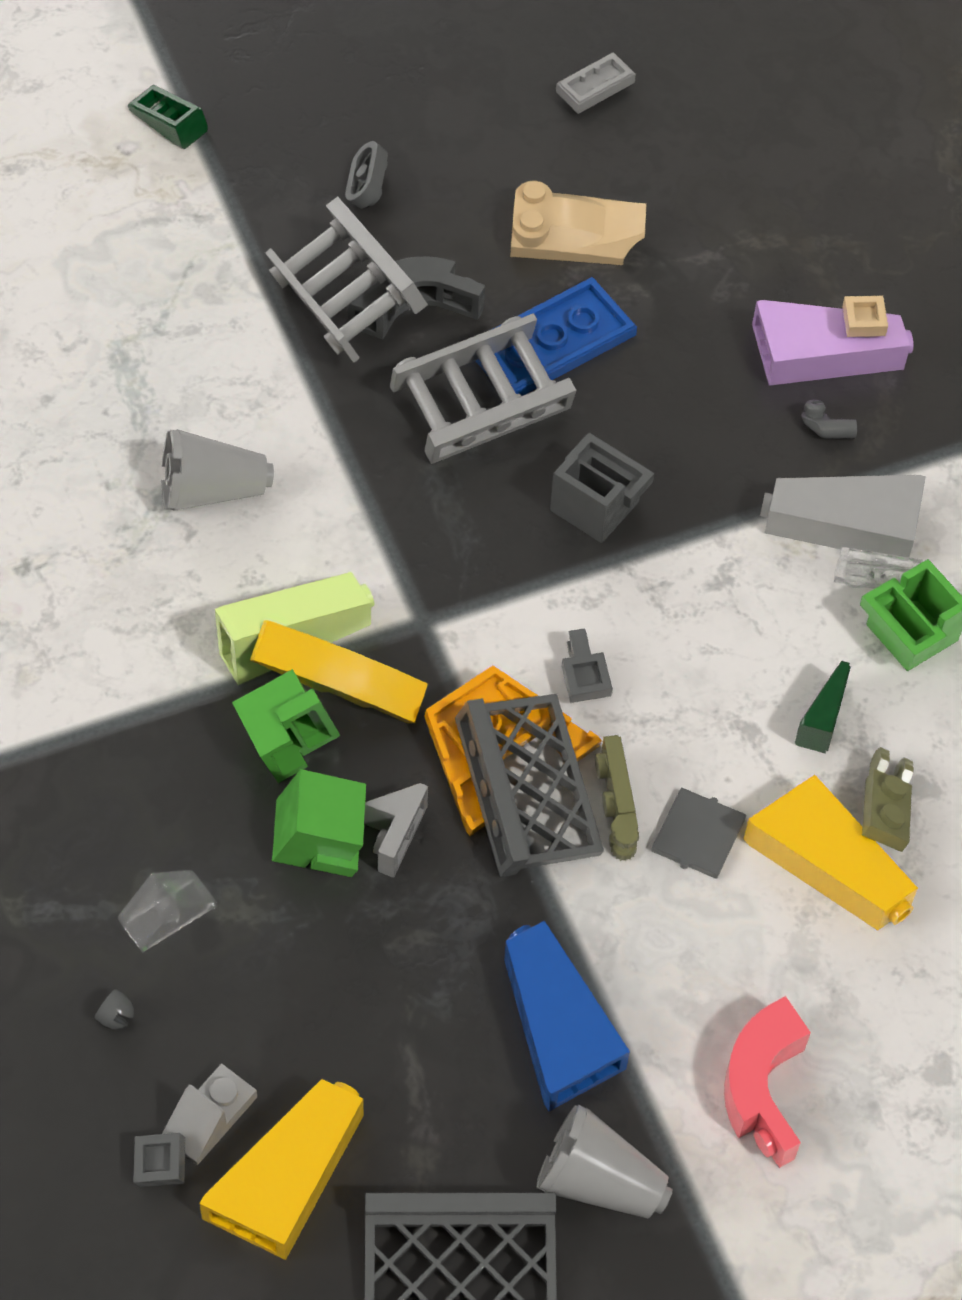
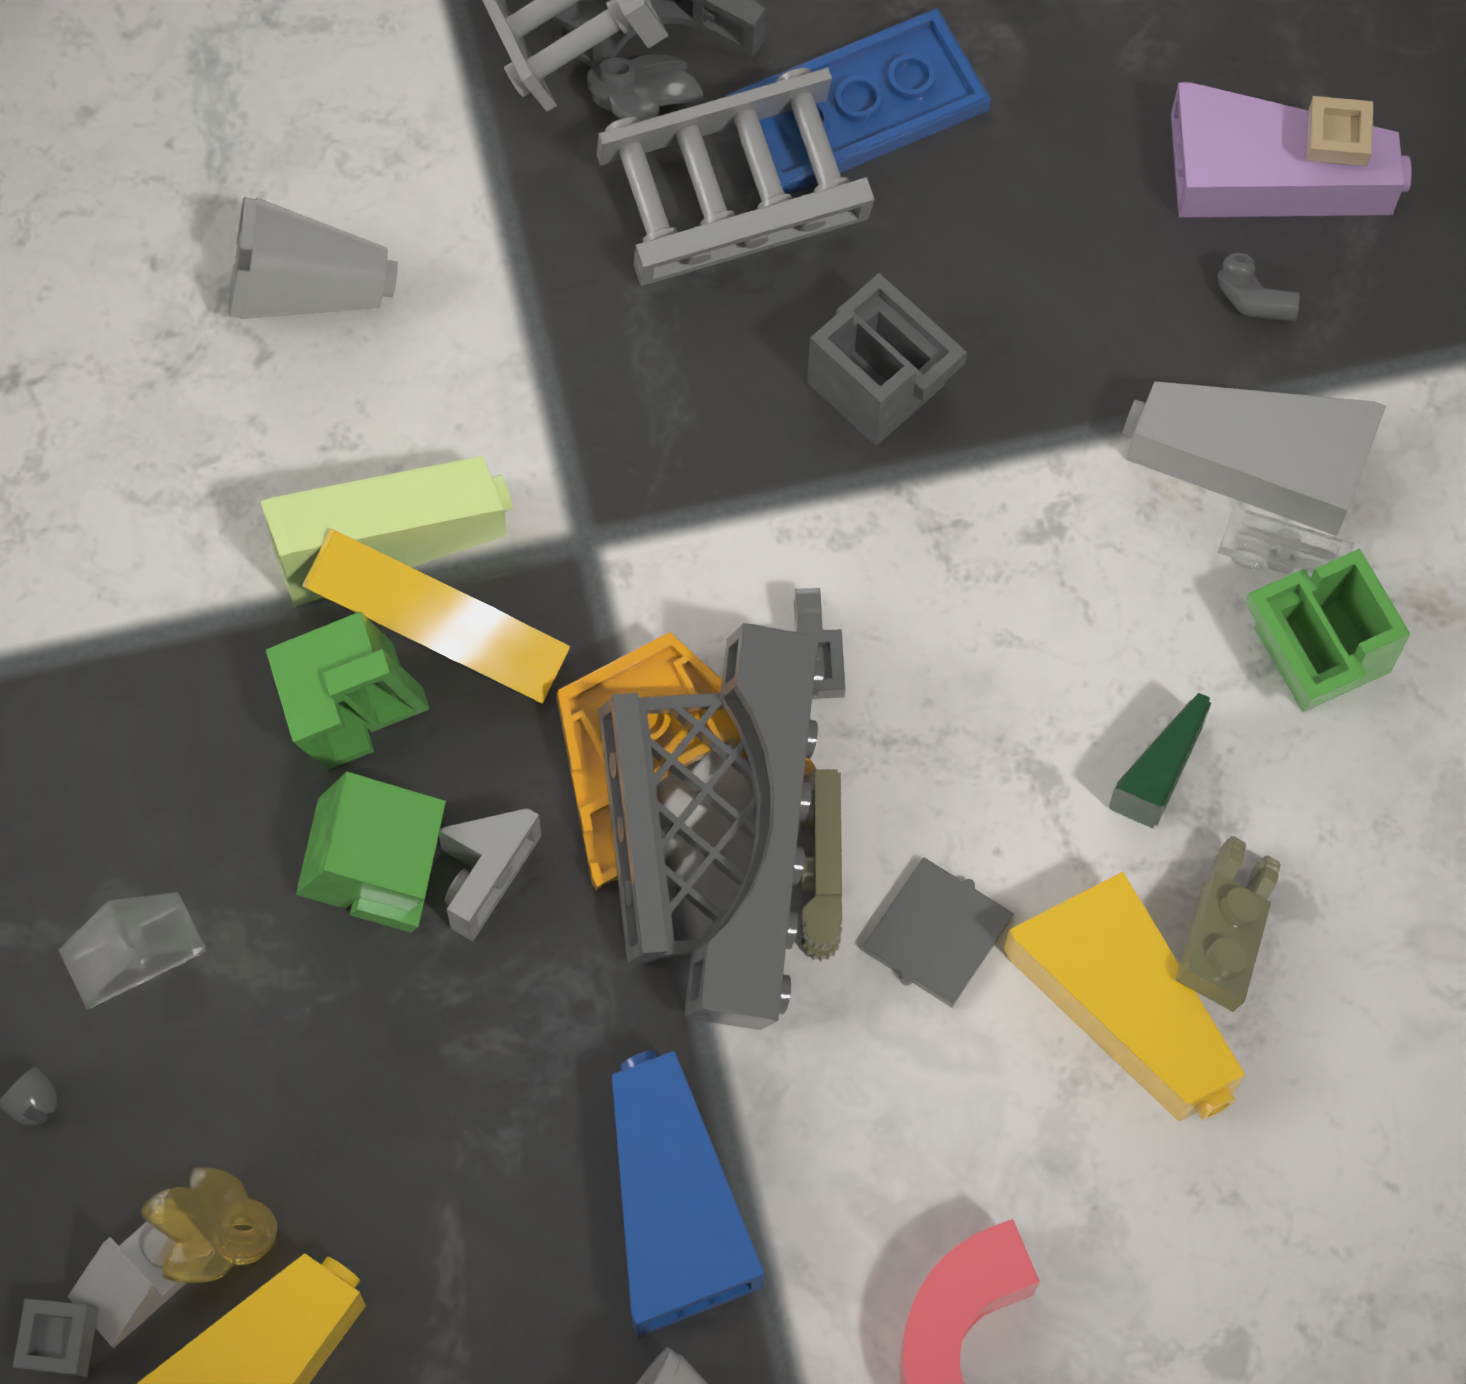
camera: 10 degrees right, 10 degrees up
(253, 1073) = (203, 1227): none -> clear yellow plate
(410, 341) = (642, 85): none -> dark grey plate
(567, 695) = (768, 696): none -> dark grey arch

